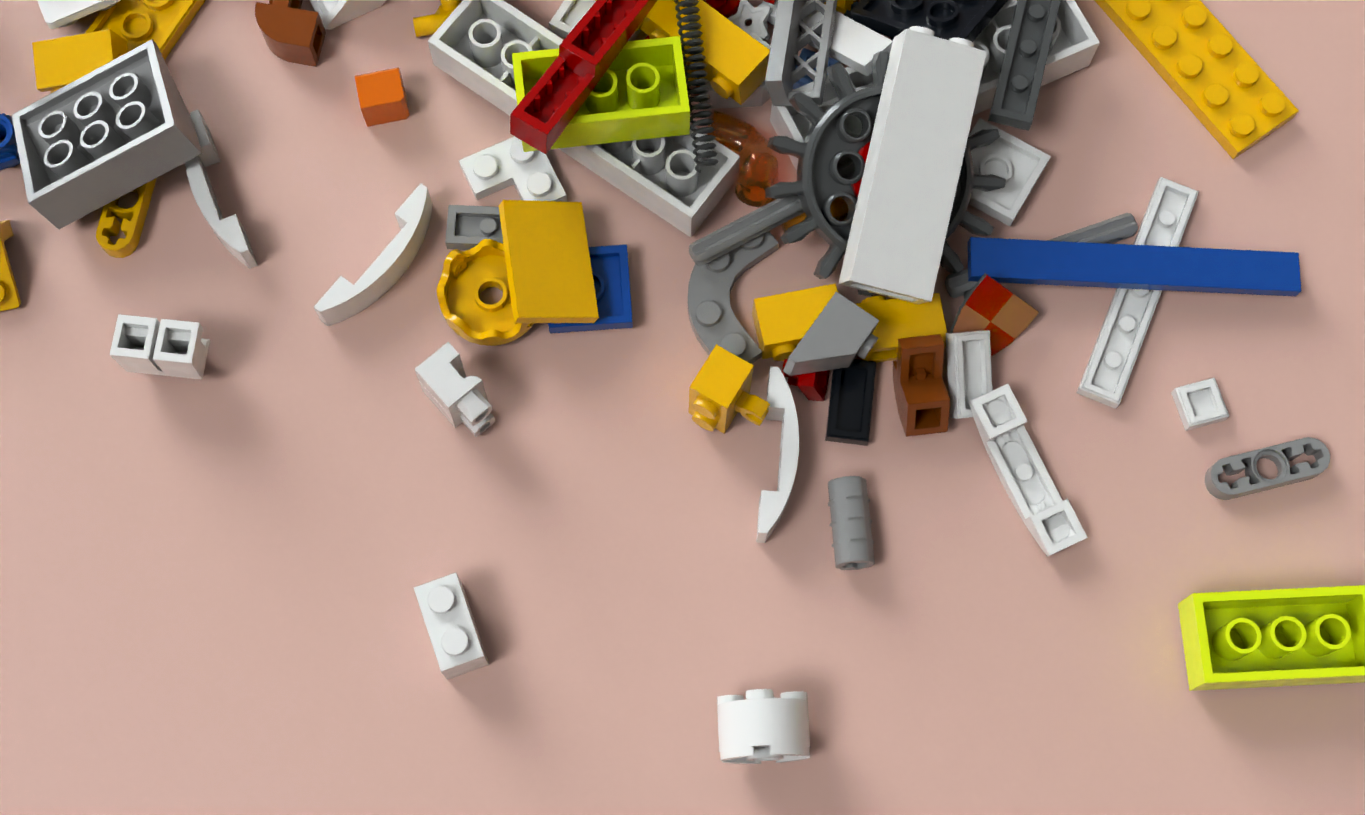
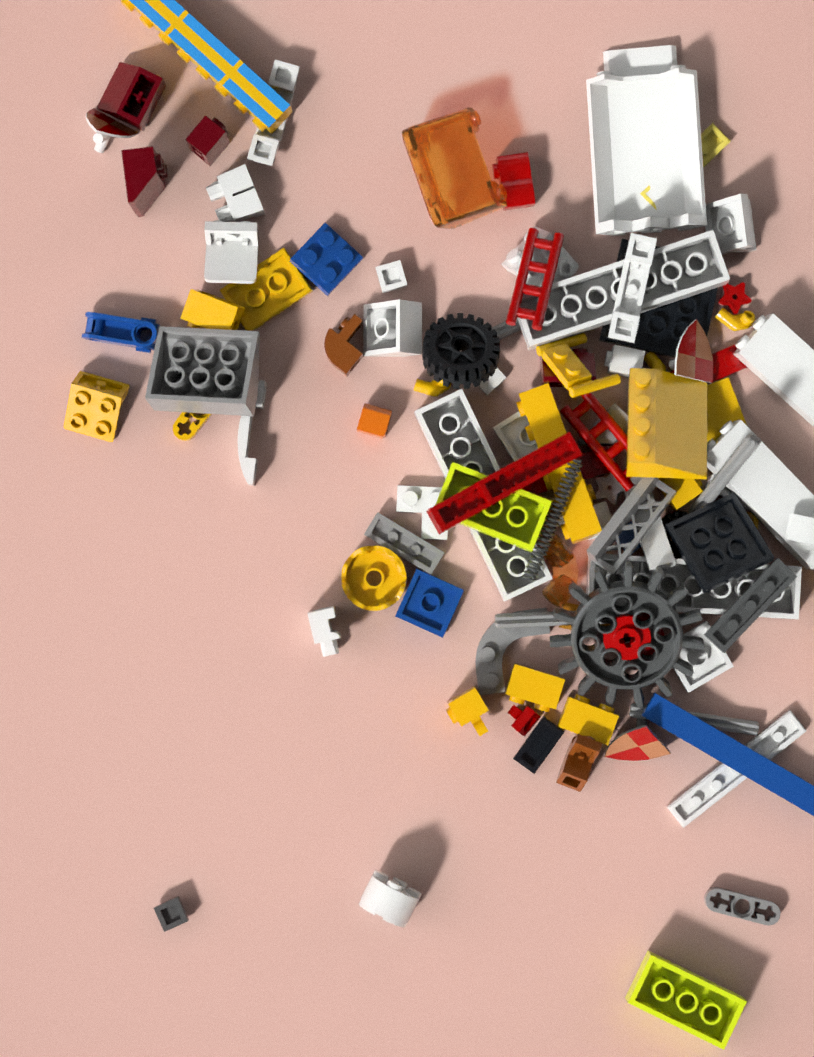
camera: 35 degrees right, 15 degrees up
(160, 347) = (178, 519): white hips -> none
(346, 299) = (353, 510): white slope -> none
(451, 626) = (258, 756): white brick -> none
(548, 262) = (413, 582): yellow tile -> none
(781, 408) = (460, 782): white slope -> none
(834, 338) = (542, 715): light grey slope -> none
(851, 523) = (498, 814): light grey axle -> none
(913, 165) = (639, 646): white brick -> none
(968, 369) = (609, 768): white tile -> none
(1023, 471) = (608, 838): white slope -> none
(1200, 404) = (729, 850): white tile -> none

